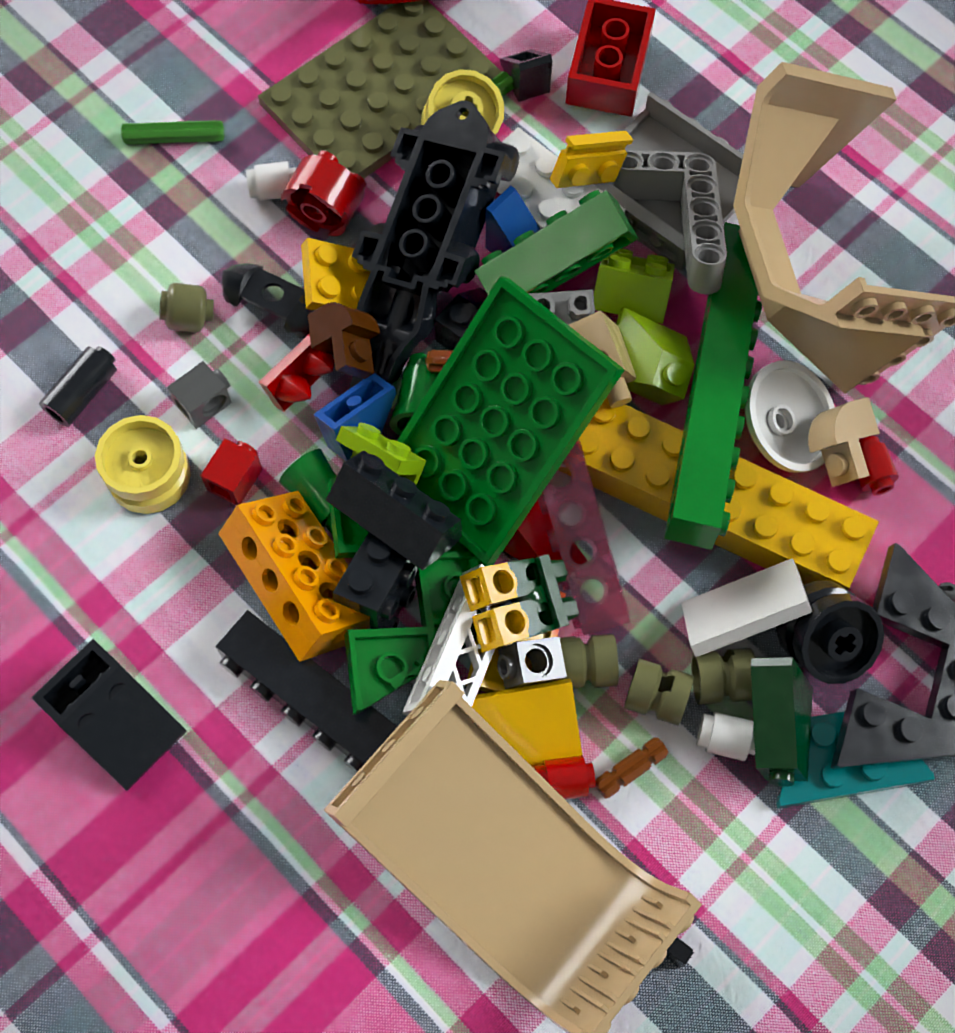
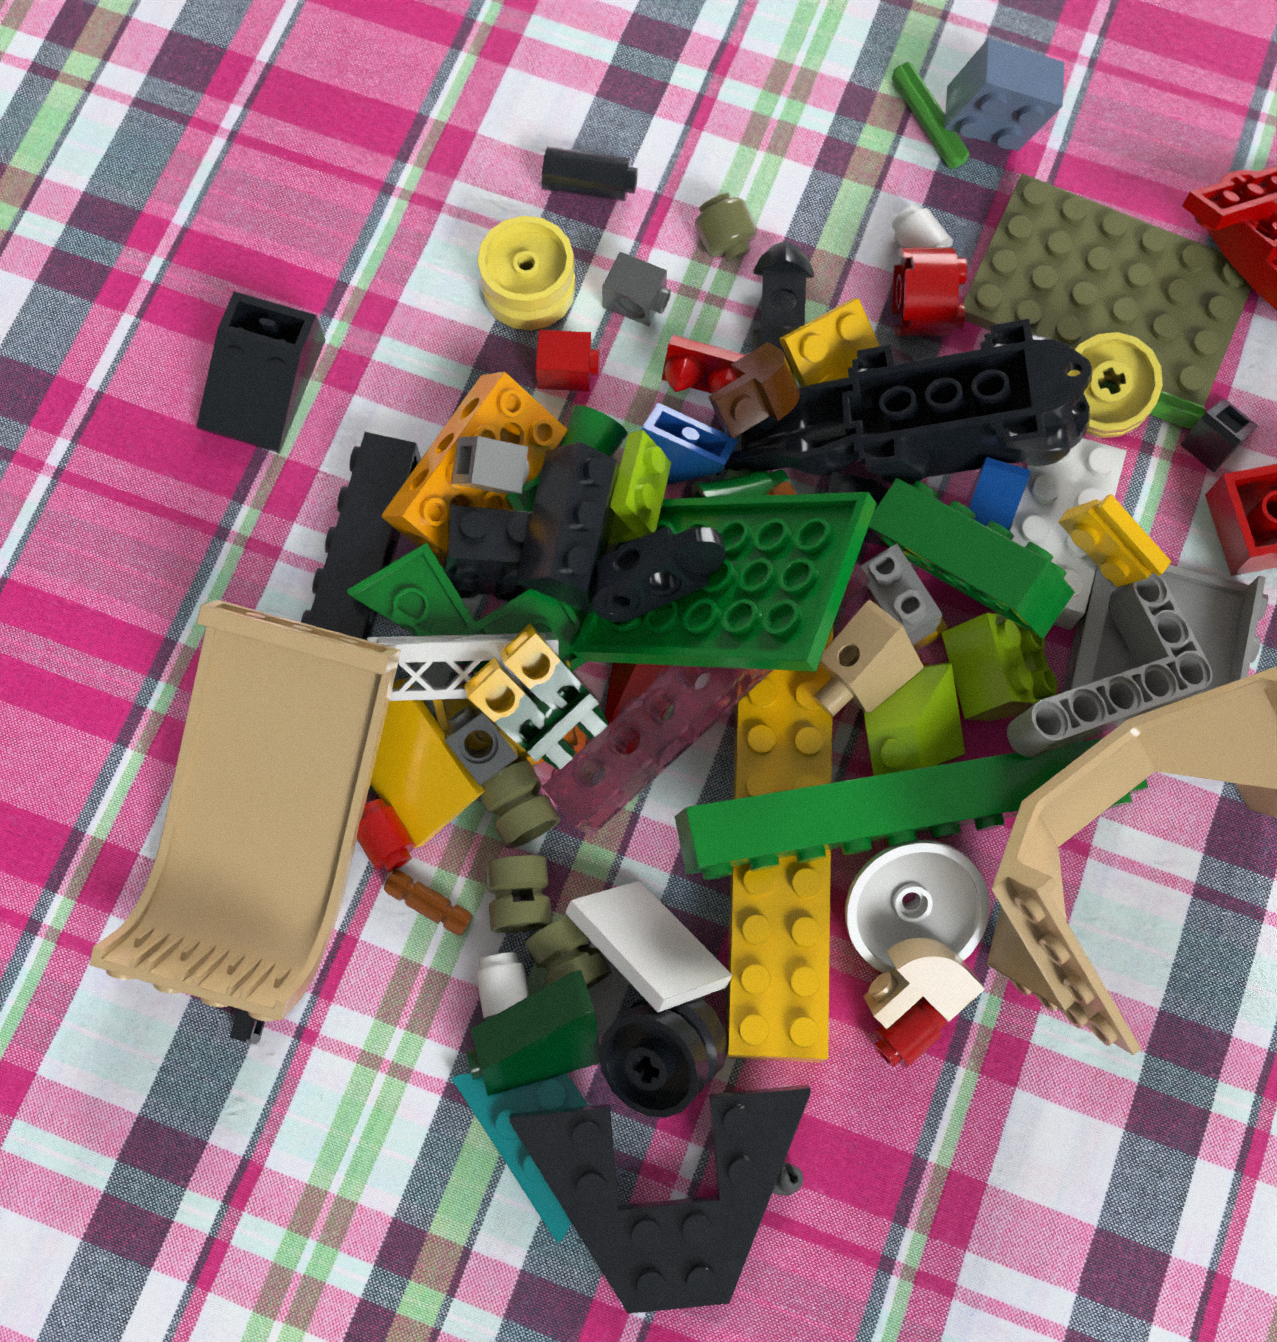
camera: 65 degrees right, 5 degrees up
(197, 71) = (1004, 95): none -> sand blue brick
(314, 548) = (490, 465): none -> light grey brick
(467, 463) = (654, 571): none -> black piece

